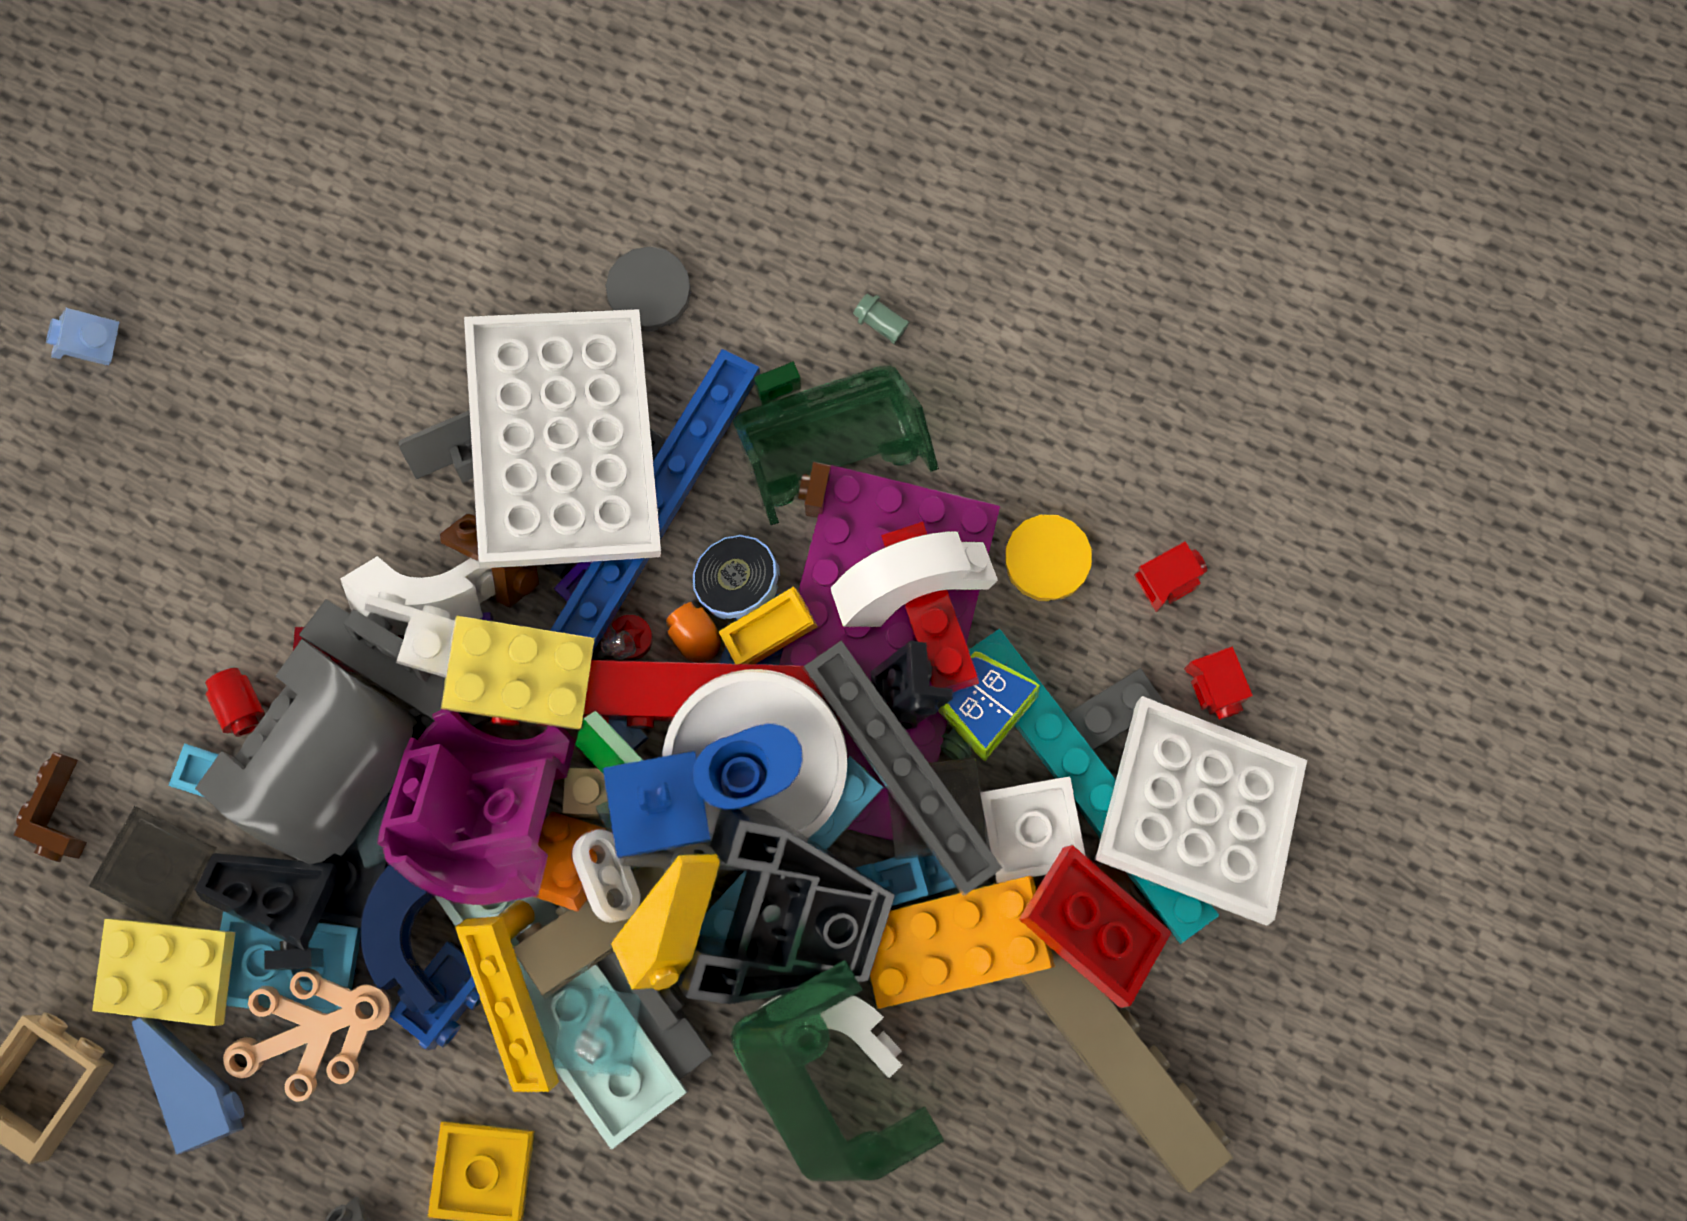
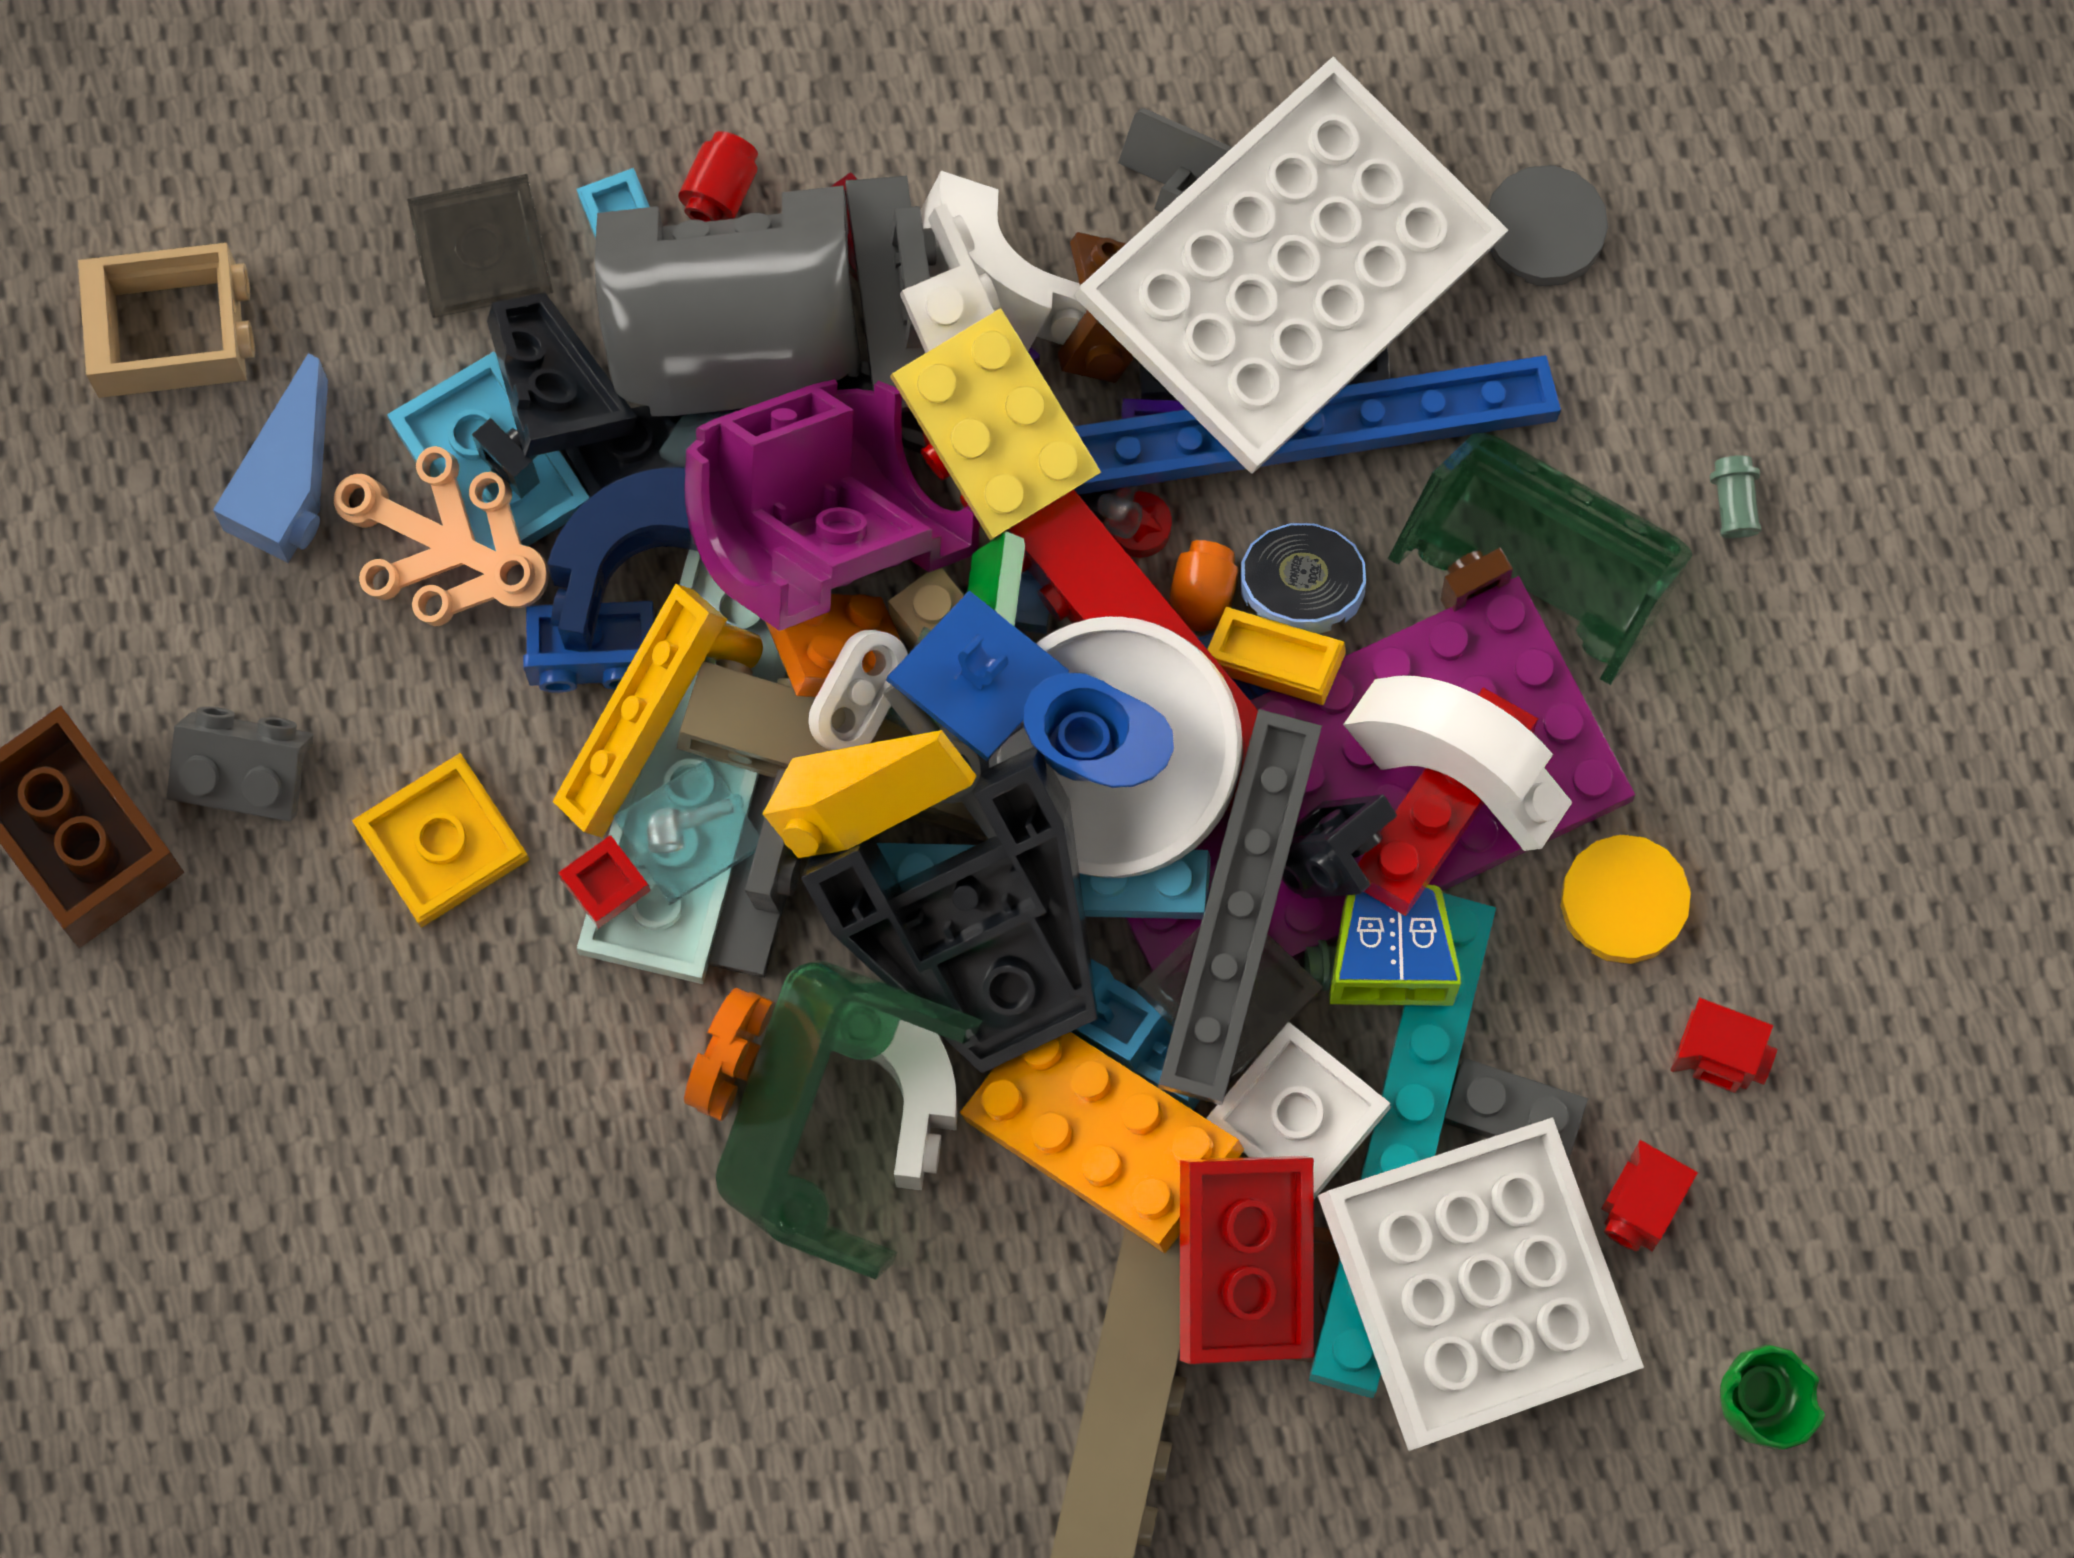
camera: 50 degrees right, 5 degrees down
(37, 812) = (441, 84): reddish brown bracket -> none
(164, 972) = (384, 345): light yellow plate -> none
(588, 1105) = (604, 881): none -> red plate
(745, 1113) = (729, 1053): none -> orange plate
(777, 383) = (1560, 445): dark green tile -> none
(1377, 709) = (1771, 1398): none -> green hair

